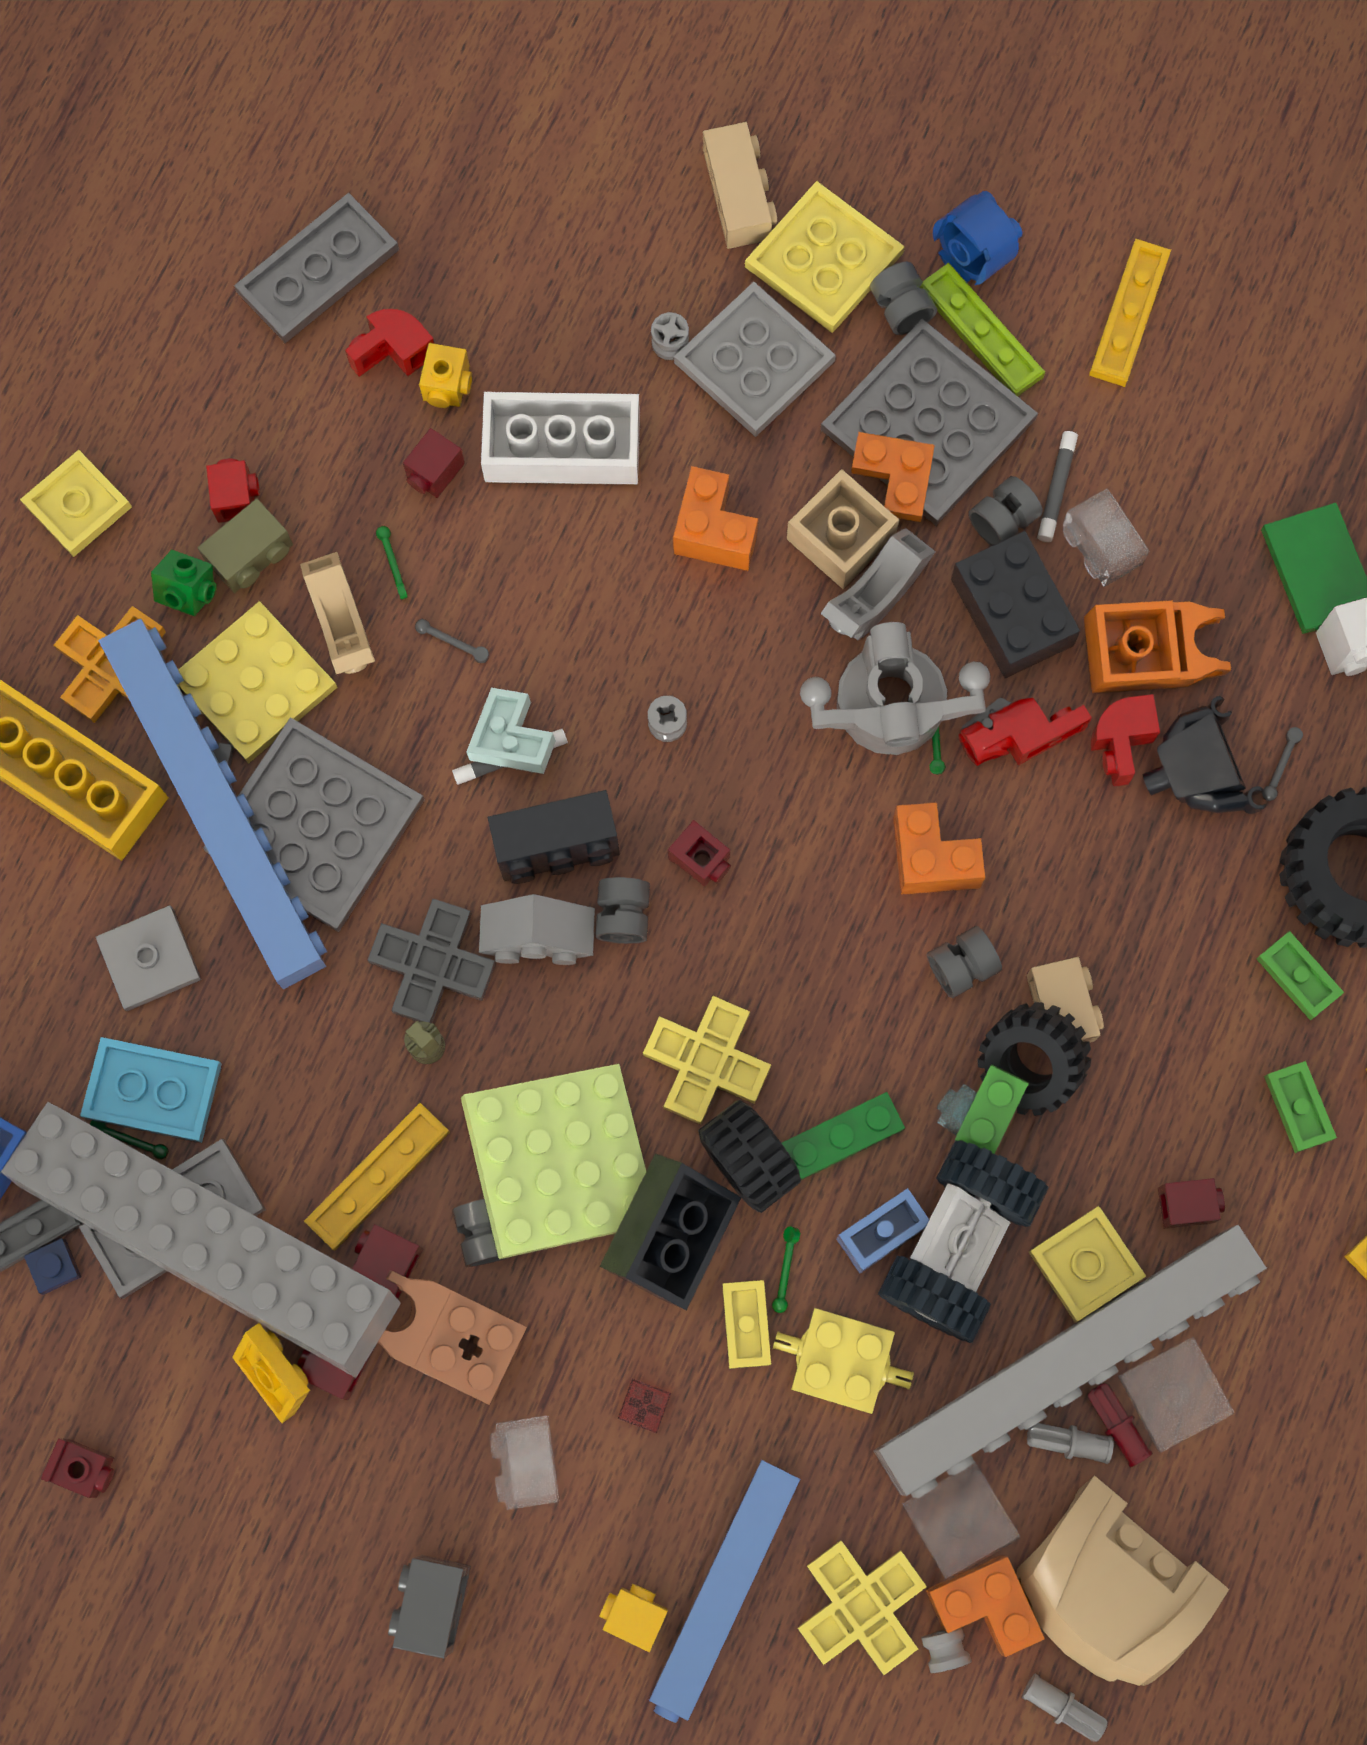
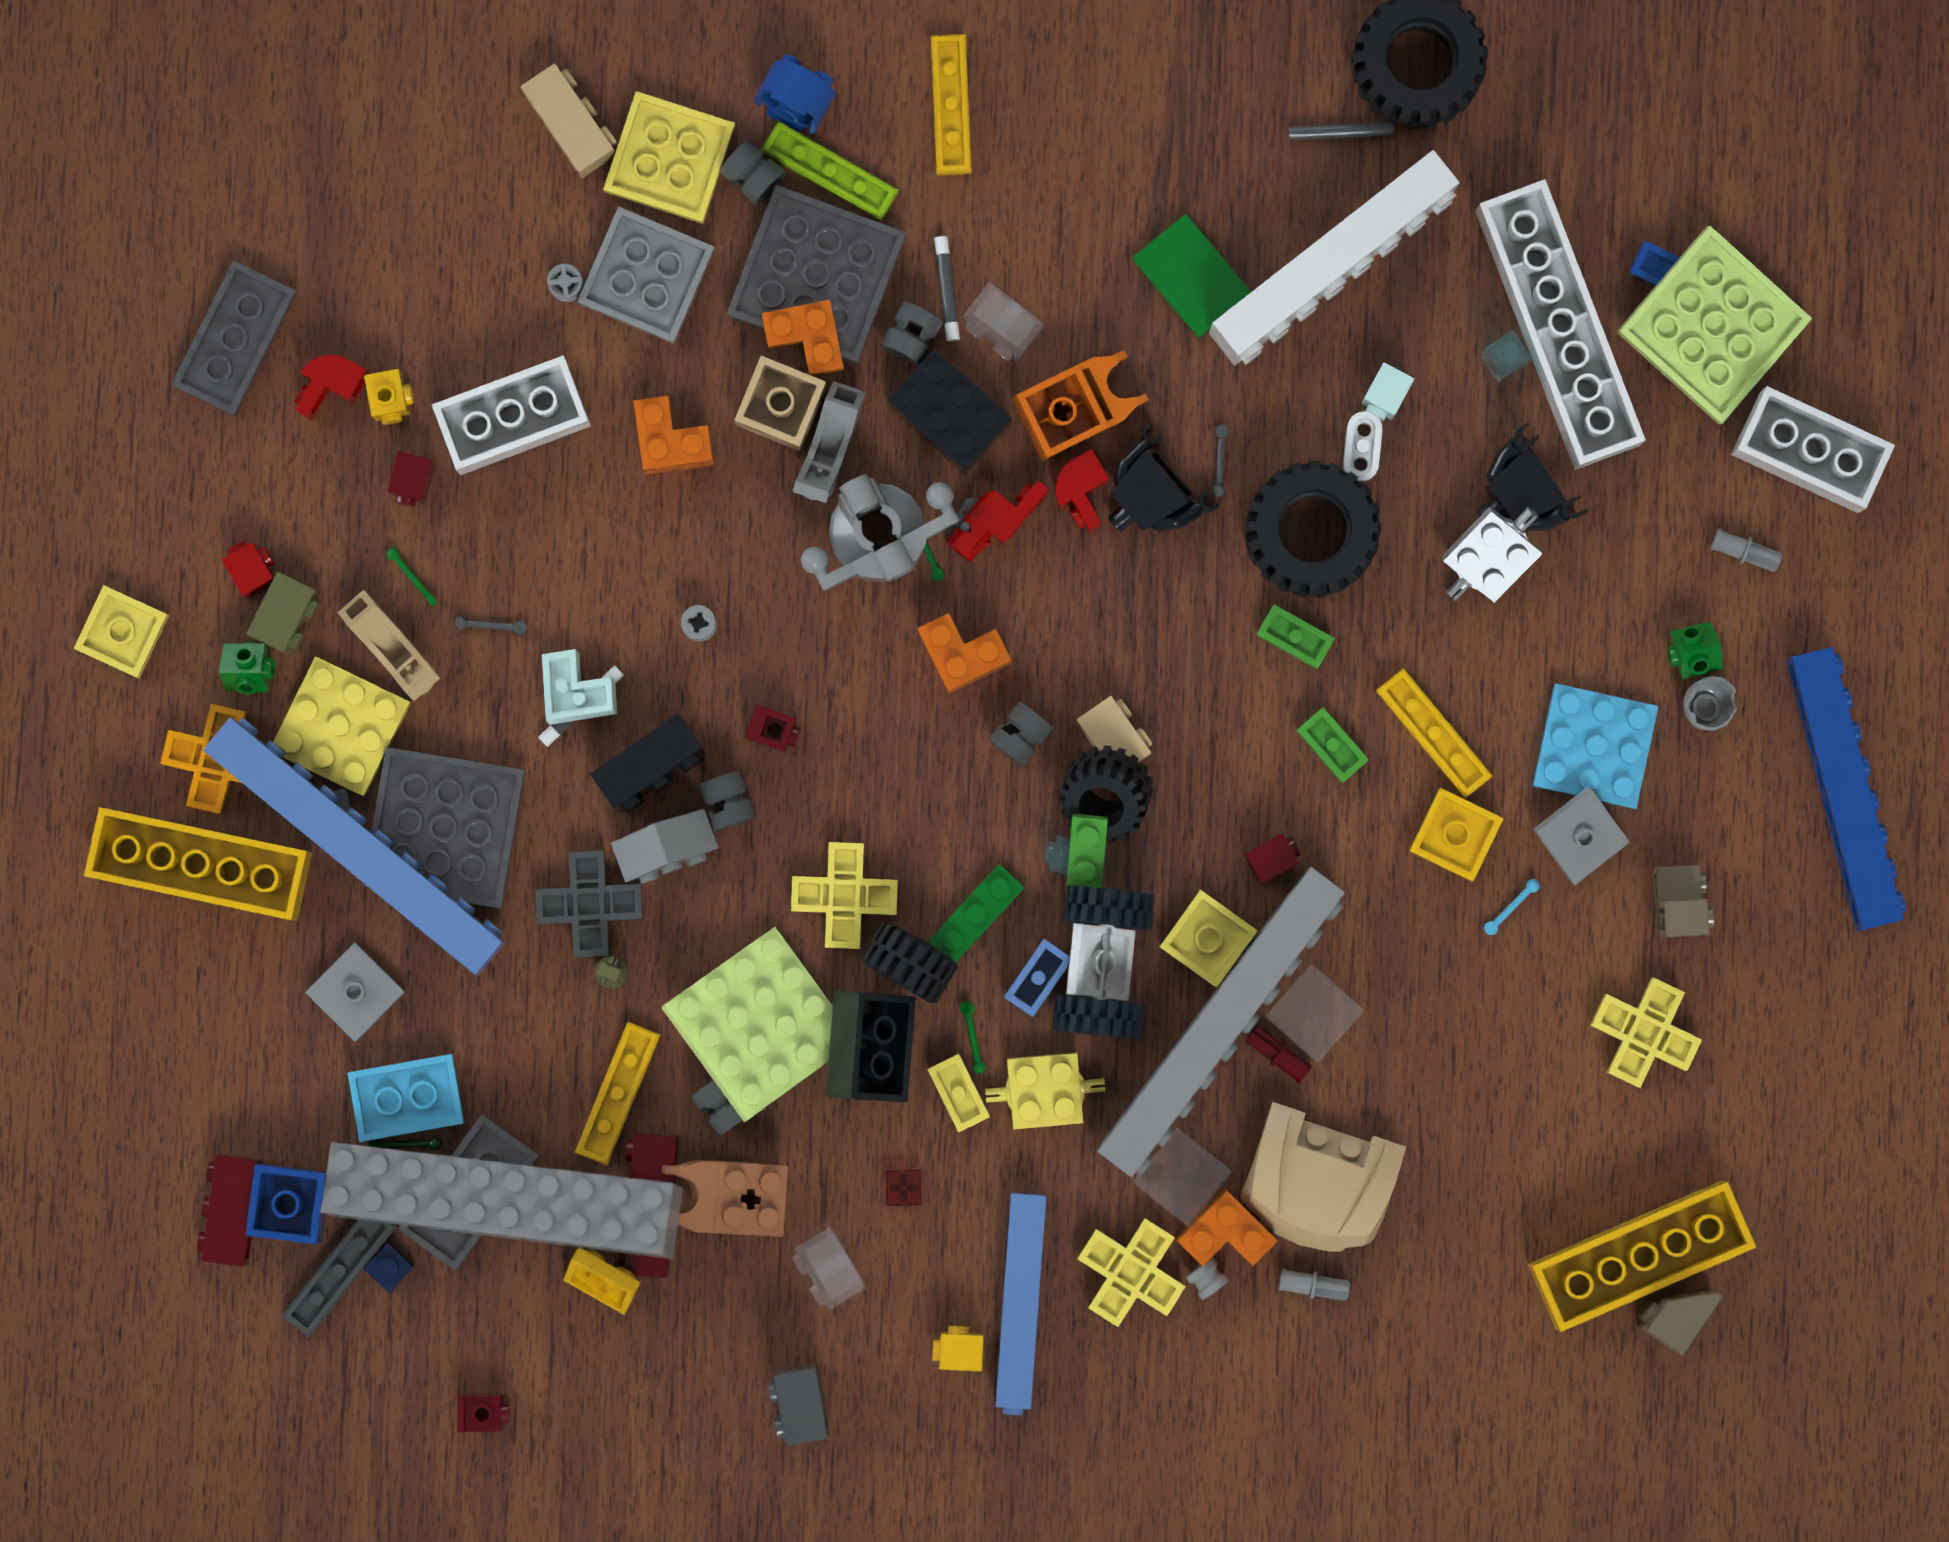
camera: 25 degrees left, 10 degrees up
(1071, 1442) = (1246, 1083): light grey axle -> none

